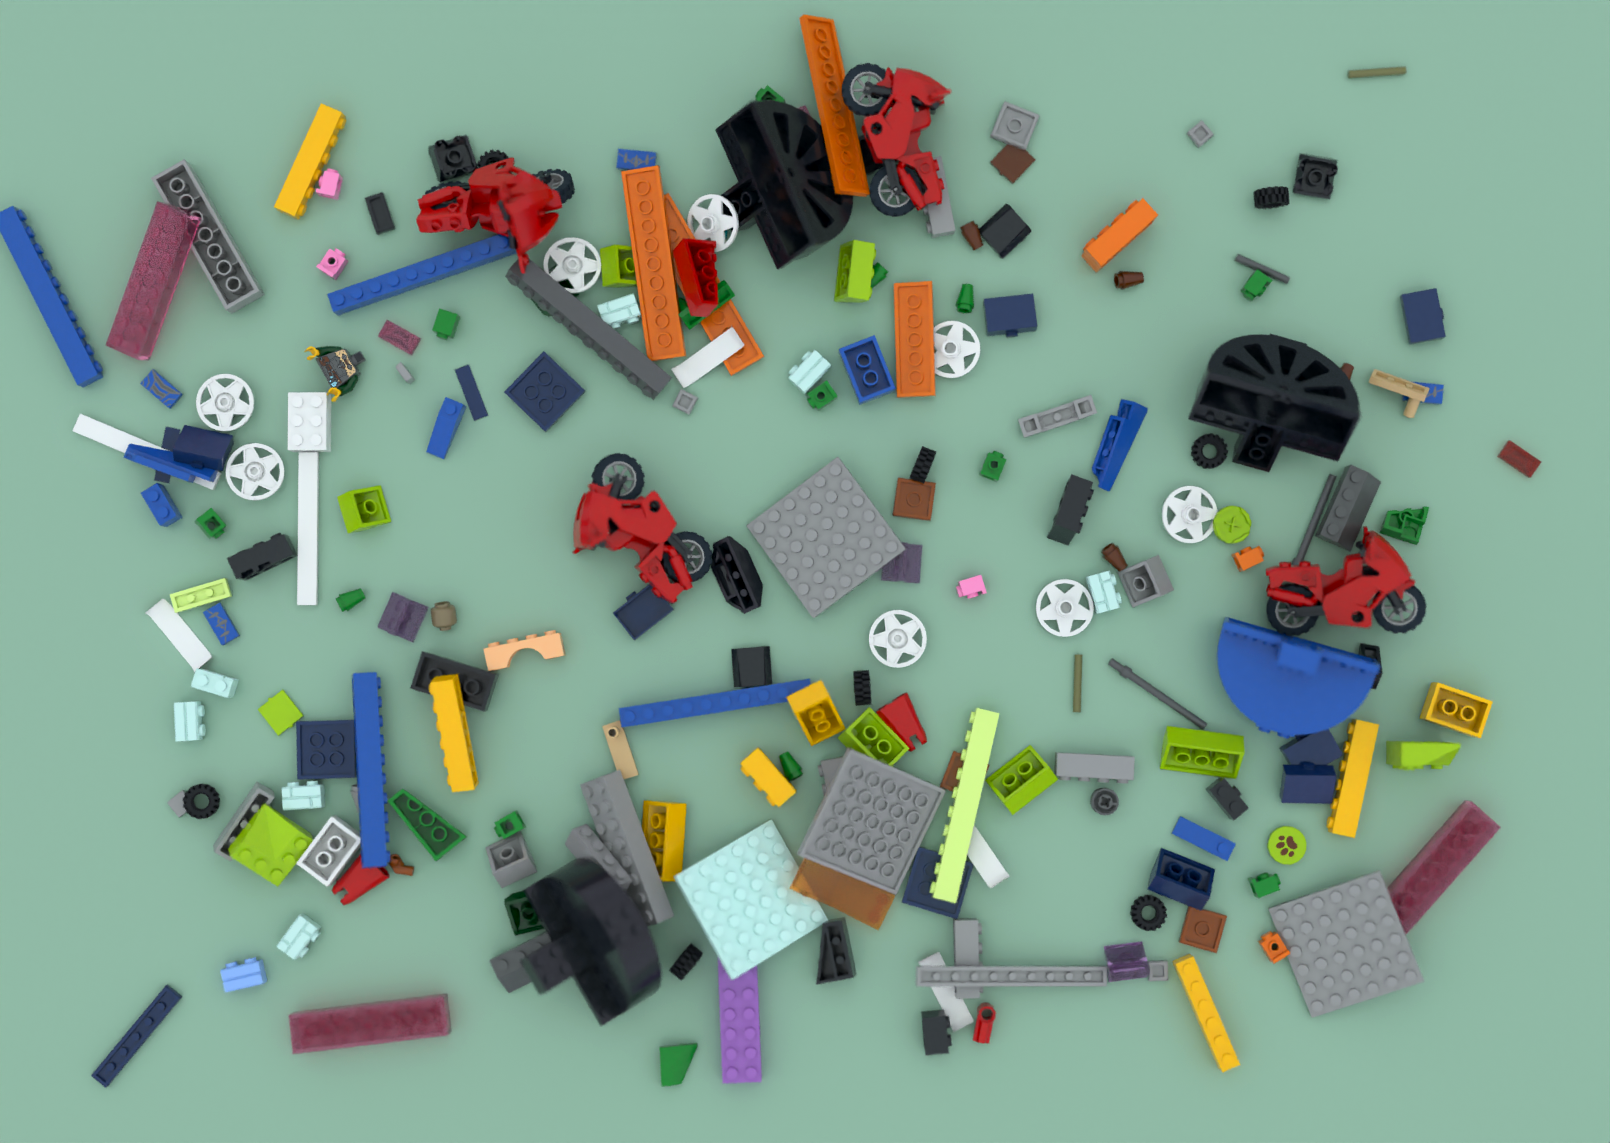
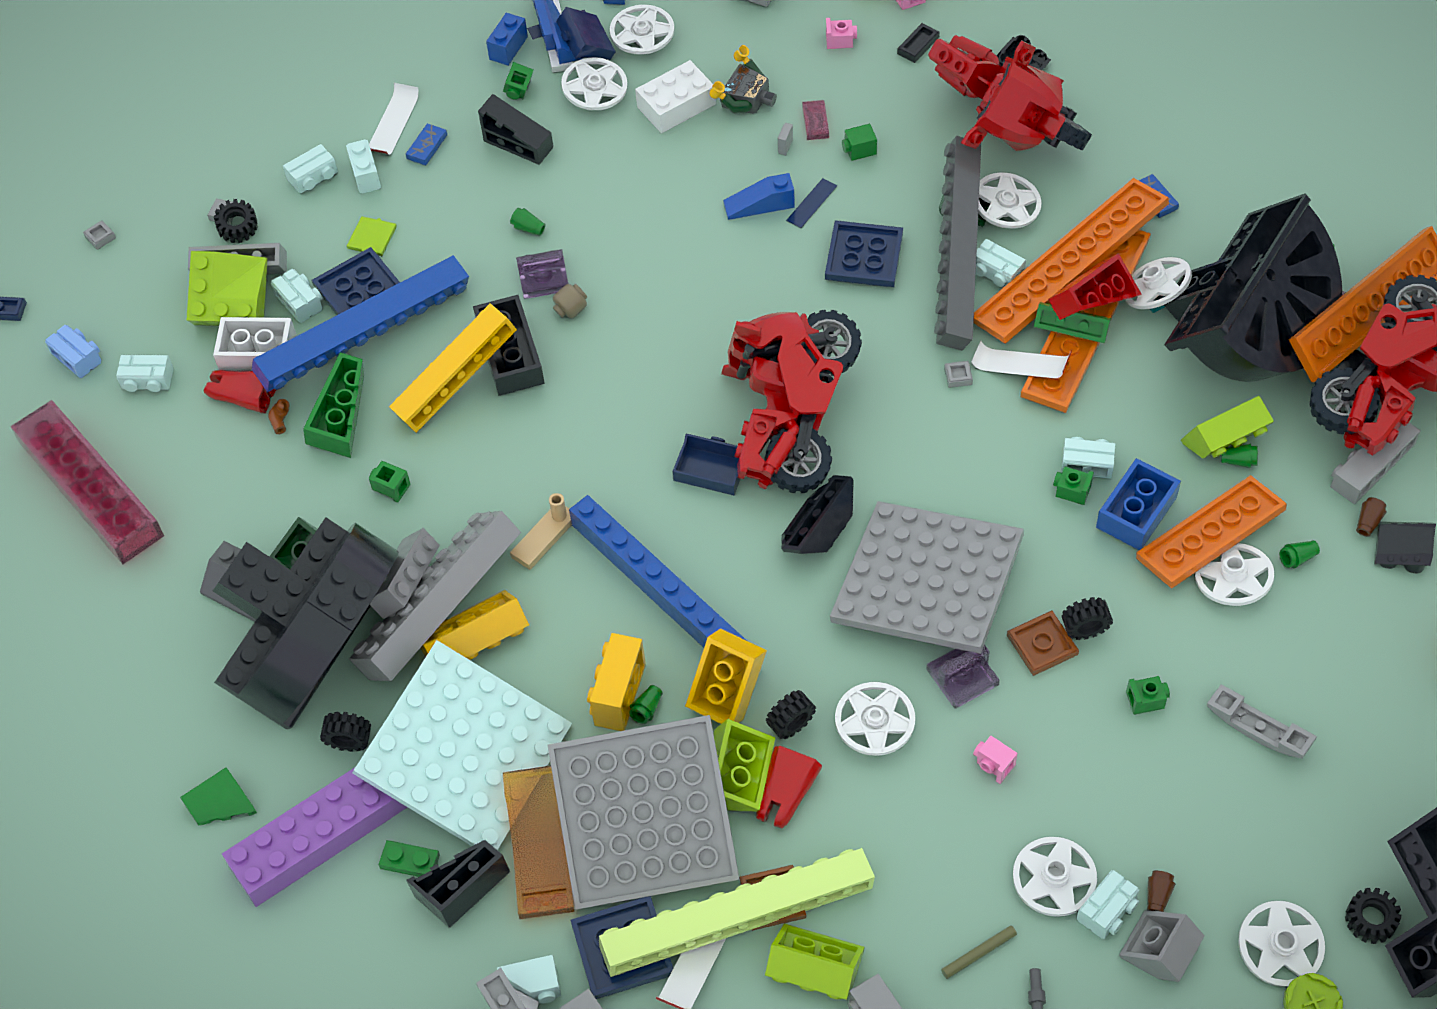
camera: 60 degrees right, 30 degrees down
(140, 902) = (99, 235): none -> light grey tile
(200, 595) = (442, 113): yellowish green plate -> none
(308, 528) = (571, 156): white tile -> none
(363, 509) = (626, 182): lime slope -> none
(420, 274) = (884, 93): blue brick -> none
(500, 656) = (566, 371): light nougat arch -> none
(510, 860) = (349, 503): light grey slope -> none
(617, 266) = (1039, 235): lime slope -> none
(751, 666) = (731, 598): black slope -> none
(794, 971) = (407, 858): none -> green plate
(923, 945) = (535, 978): none -> light aqua slope
(1010, 315) = (1323, 606): dark blue container -> none
(1071, 510) = (1169, 803): black wedge -> none
(1117, 442) = (1292, 807): blue wedge -> none

